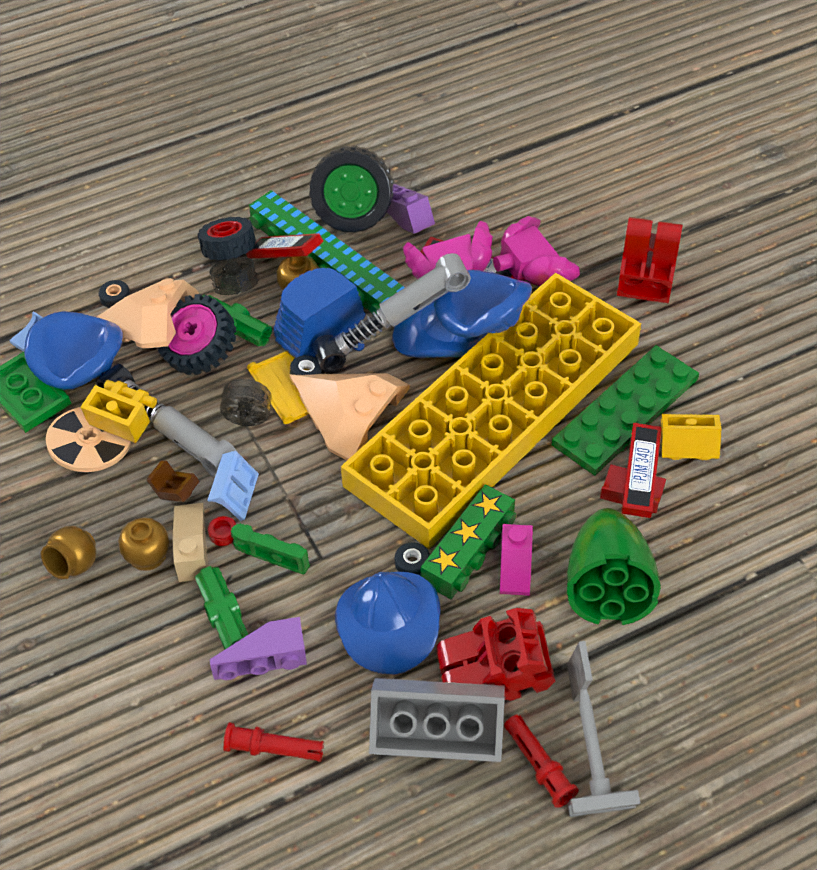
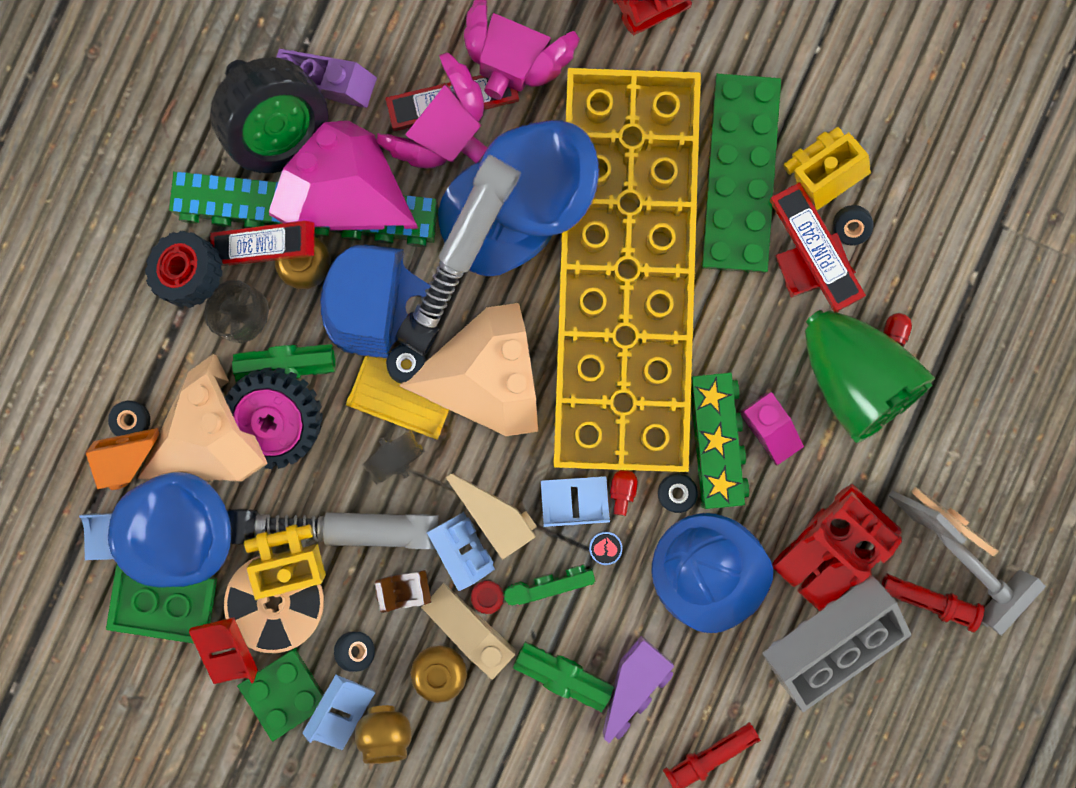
camera: 40 degrees left, 35 degrees up
(34, 421) = (229, 664): none -> red piece
(36, 493) = (282, 694): none -> green plate
(42, 524) = (333, 728): none -> light blue piece
(87, 298) = (119, 457): none -> orange slope
(109, 491) = (343, 654): none -> black wheel
(275, 486) = (499, 520): none -> tan slope
(326, 505) = (591, 501): none -> light blue piece
(330, 557) = (605, 548): none -> tile
(359, 243) = (340, 183): none -> dark pink wedge
(375, 530) = (623, 490): none -> red cylinder
(602, 698) = (956, 520): none -> light nougat piece
(666, 563) = (898, 328): none -> red cylinder
(692, 488) = (853, 214): none -> black wheel

